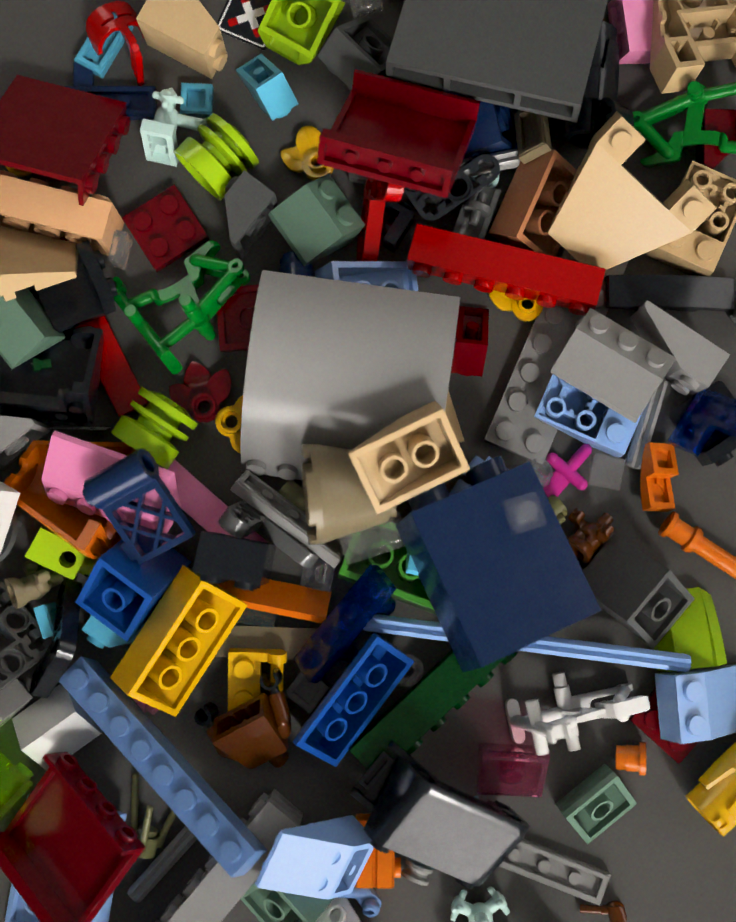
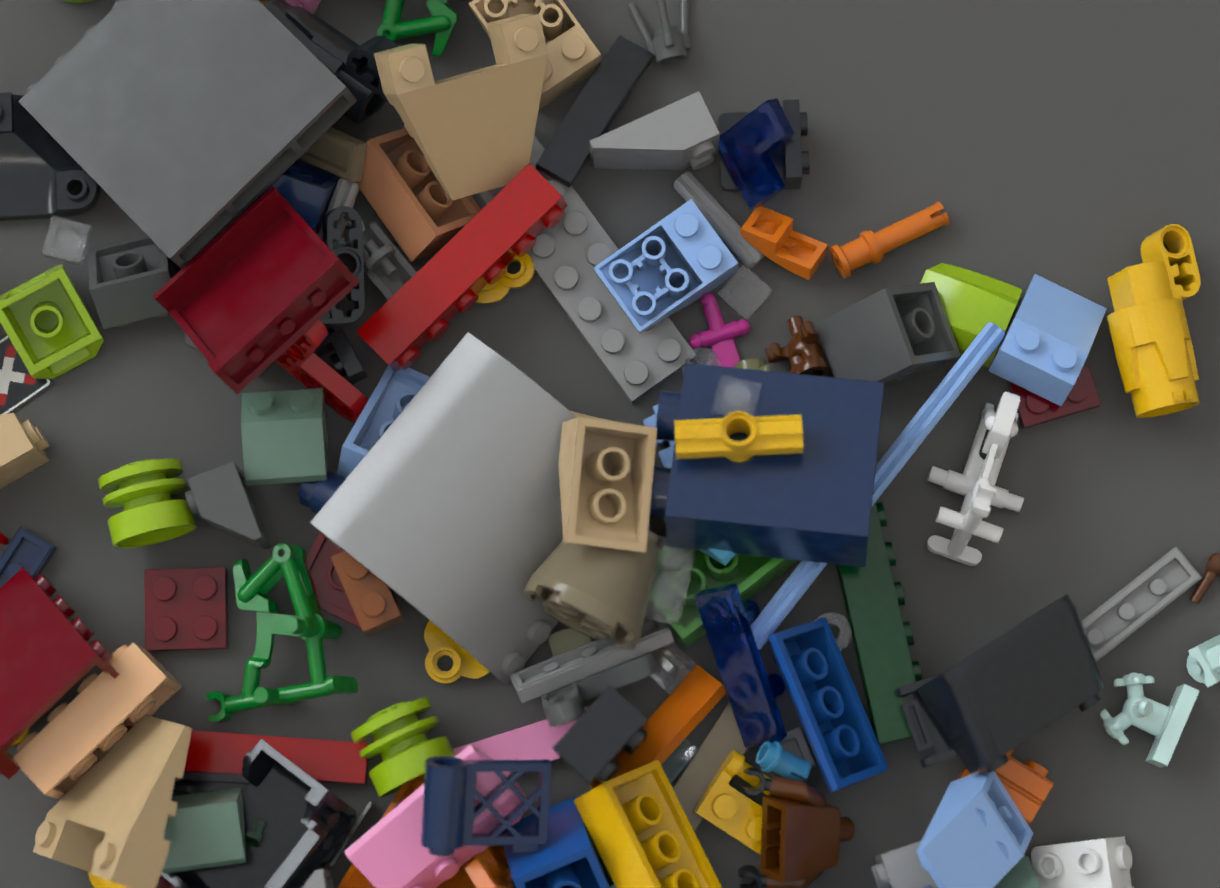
camera: 55 degrees left, 5 degrees down
(82, 297) = (214, 739): black bracket -> none
(120, 249) = (180, 671): clear tile -> none
(159, 134) = (82, 545): light aqua piece -> none
(197, 99) = (64, 490): medium azure tile -> none
(200, 388) = (387, 673): dark red plate -> none
(234, 345) = (368, 595): none -> dark orange brick
(267, 87) = (100, 403): medium azure slope -> none
(295, 683) = (774, 758): none -> dark azure pin
(305, 154) = (198, 398): yellow plate -> none
(368, 900) = (1049, 823): medium blue arm -> none
(417, 872) = (1053, 750): light grey bush -> none
(471, 341) = (519, 348): dark red slope -> none
(511, 550) = (711, 436): none -> yellow piece
(511, 770) = (1004, 584): clear pink slope -> none
(596, 803) = (1092, 515): sand green slope -> none
(612, 365) = (636, 217): light grey slope -> none
(631, 758) = (1065, 449): orange piece -> none

